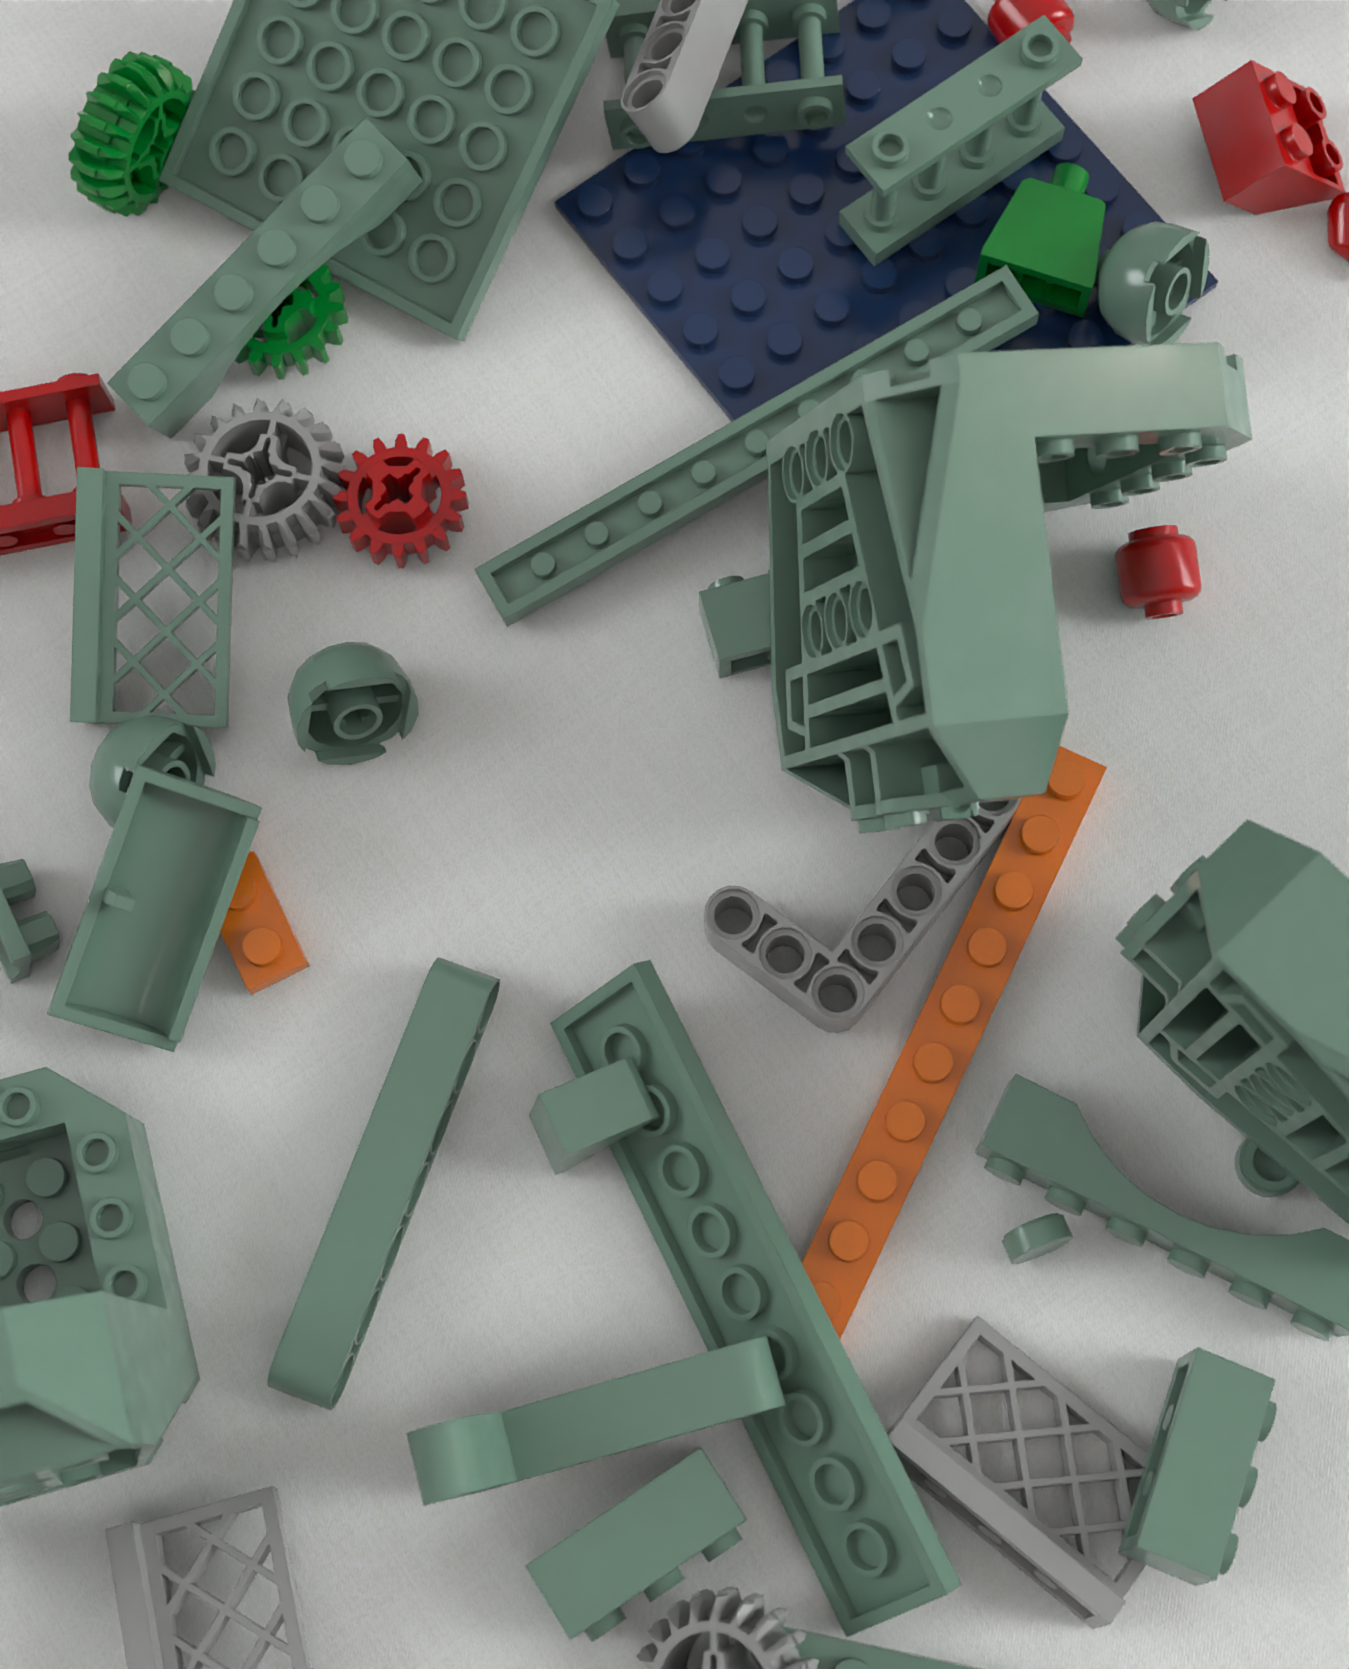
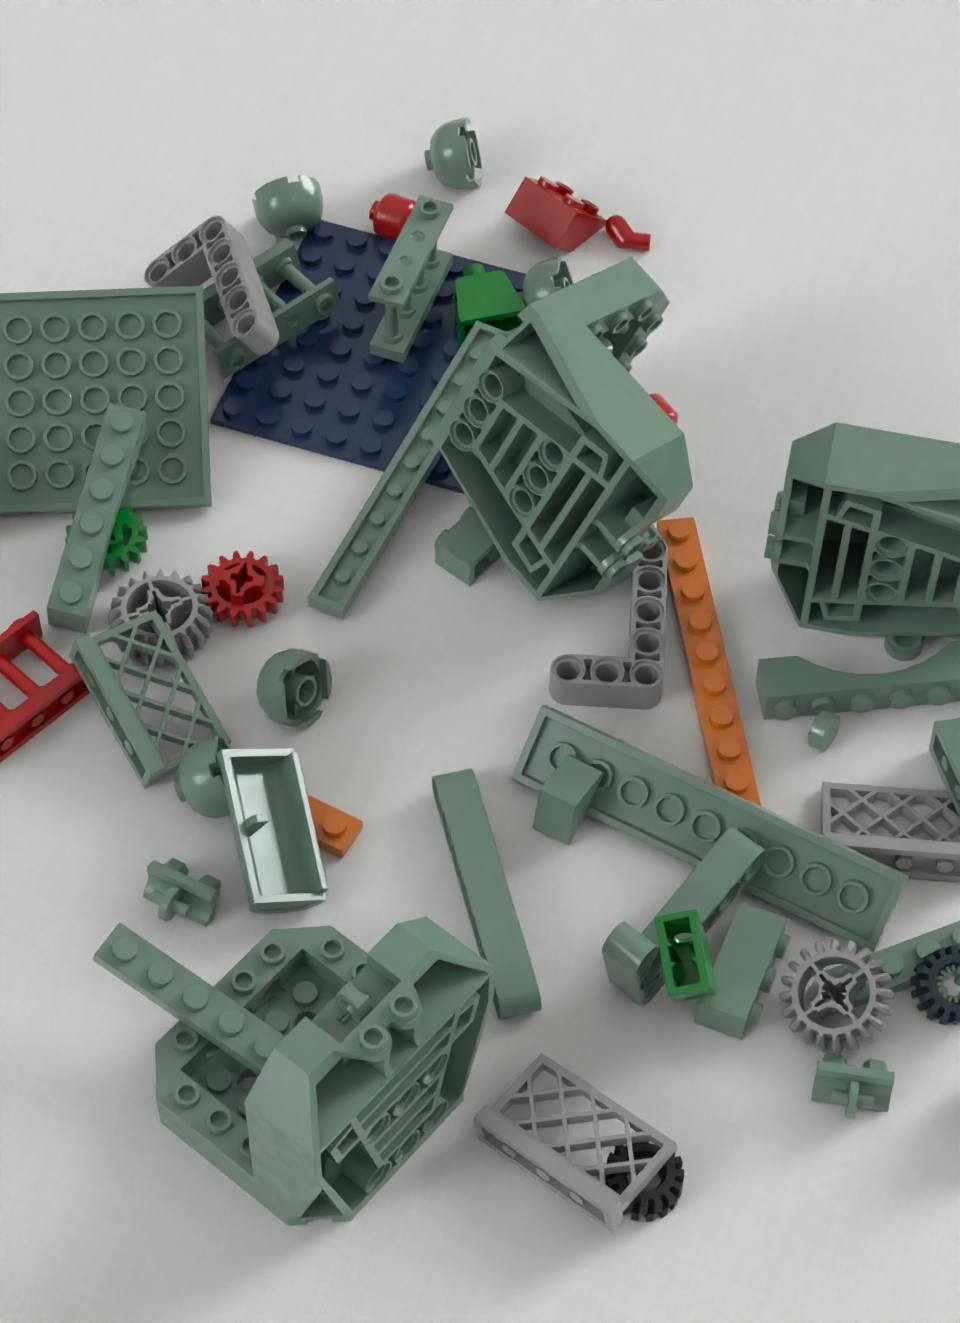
camera: 40 degrees left, 20 degrees down
(523, 1513) = (685, 961): none -> green torso

